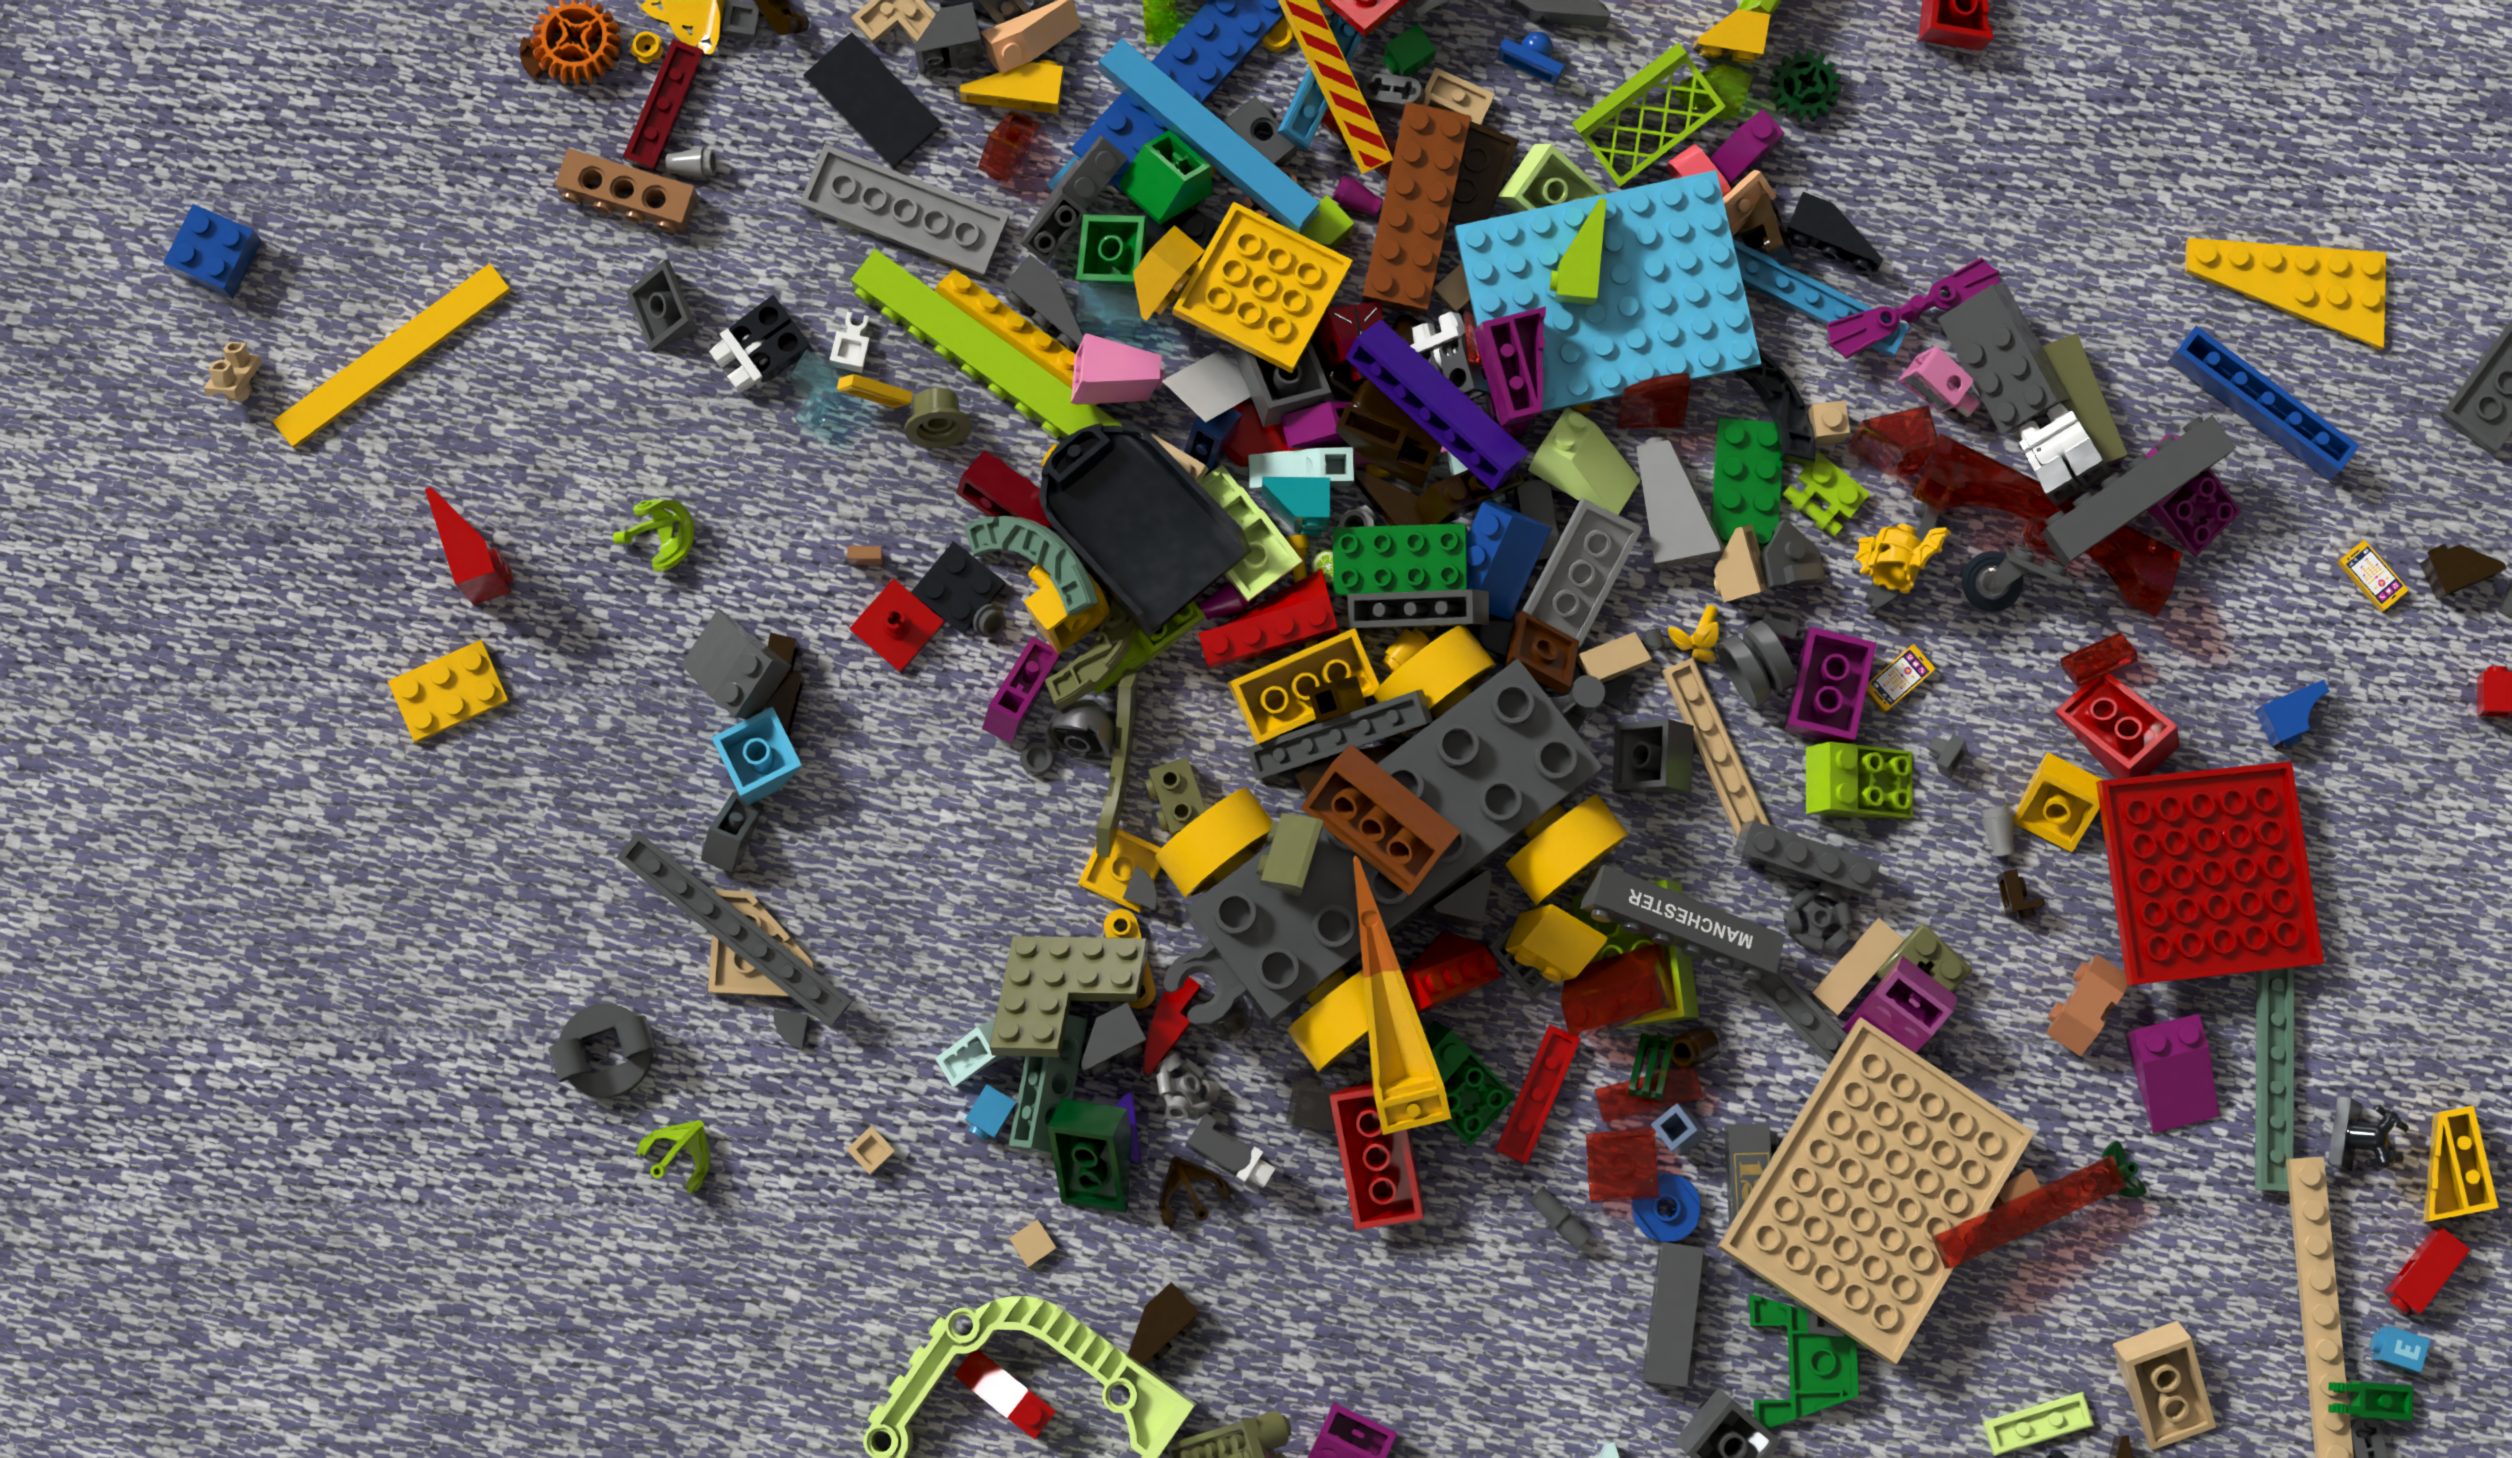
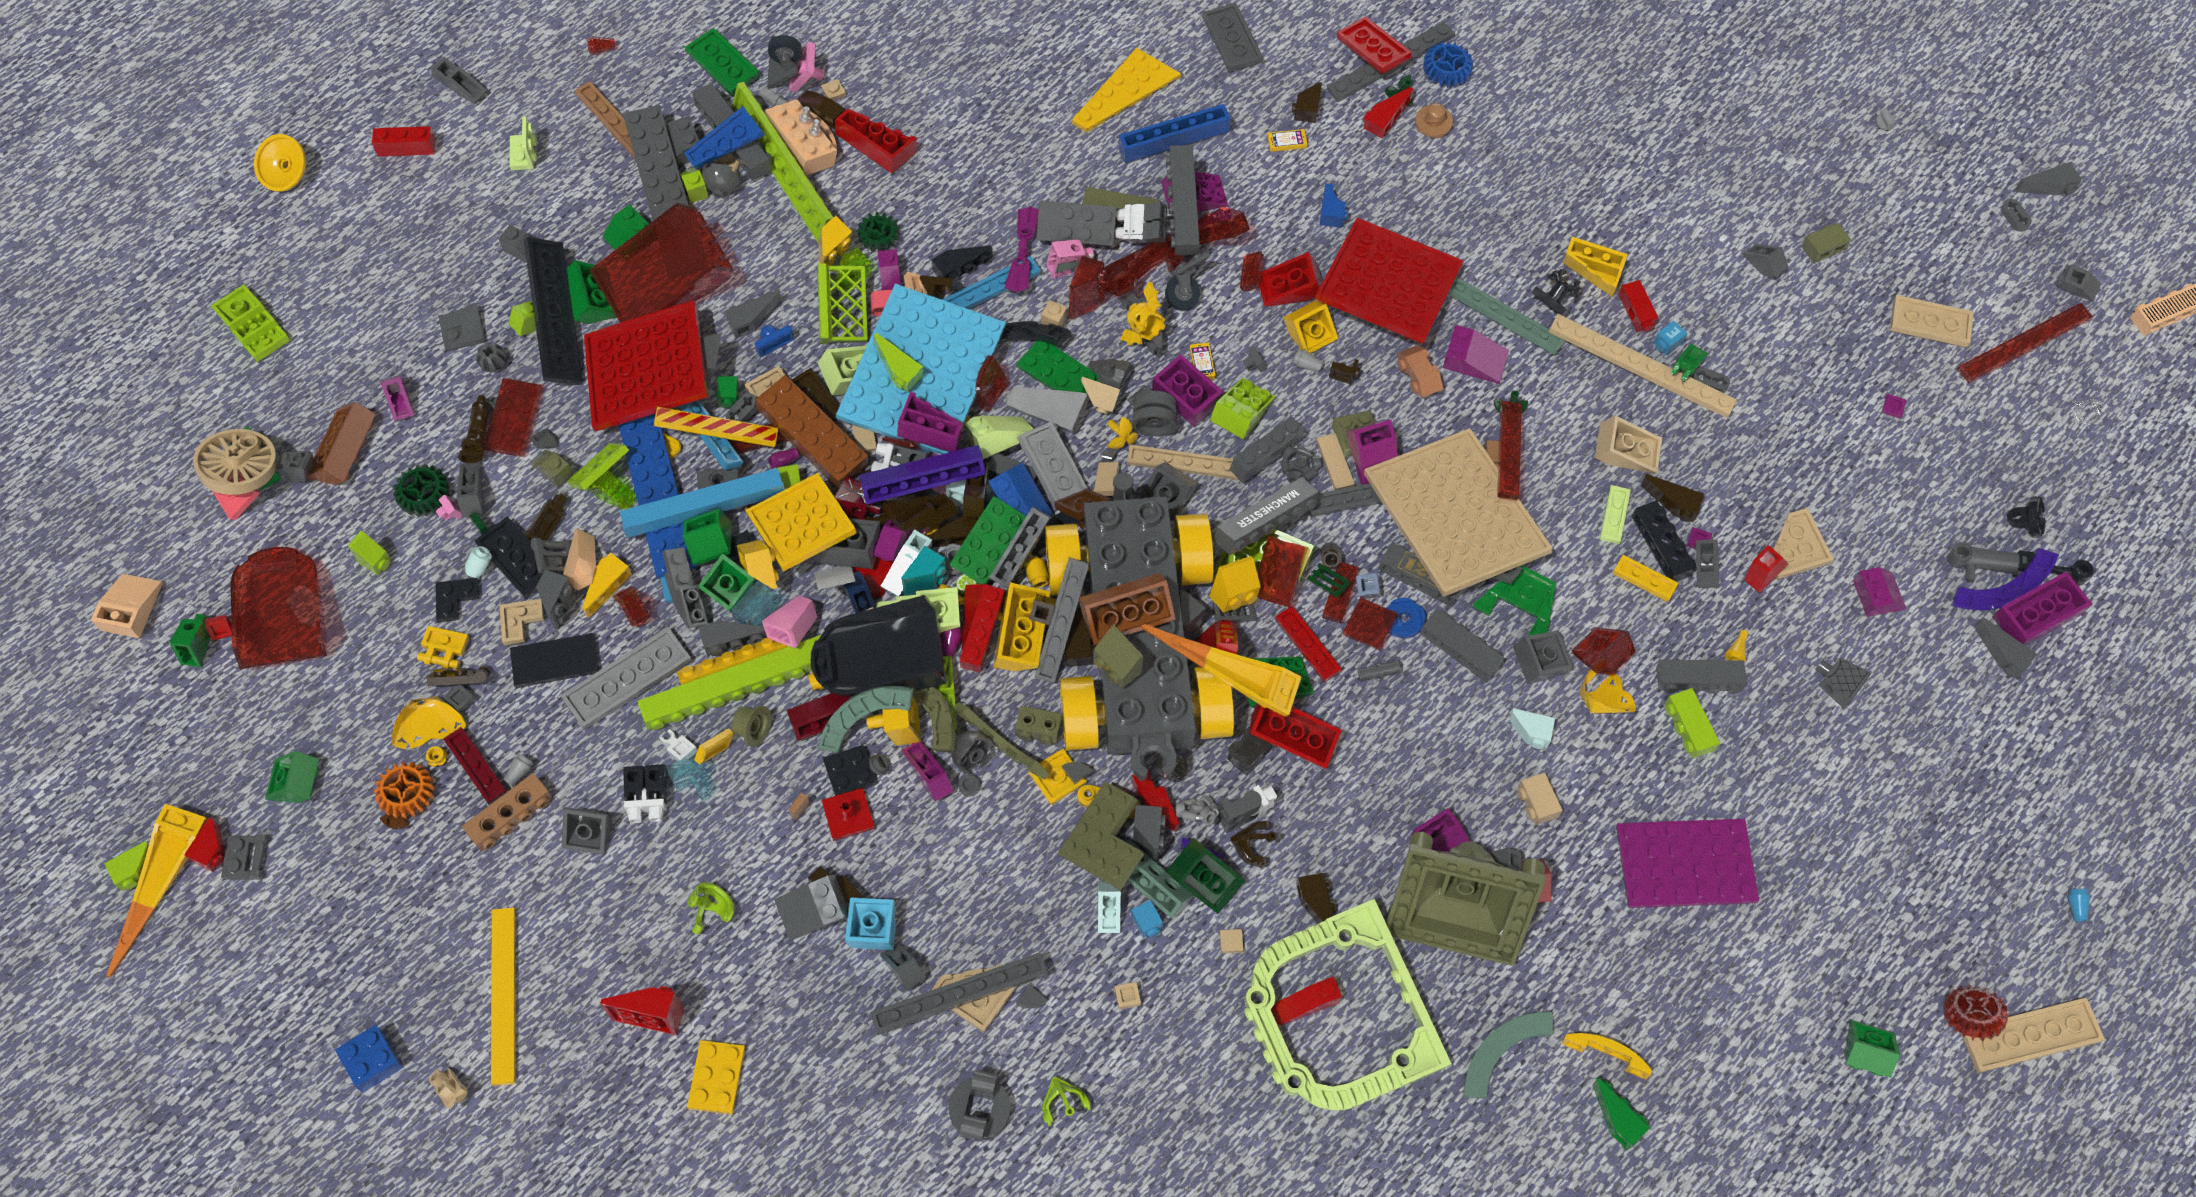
camera: 55 degrees left, 15 degrees down
(1833, 488) = (1088, 335): lime plate -> none

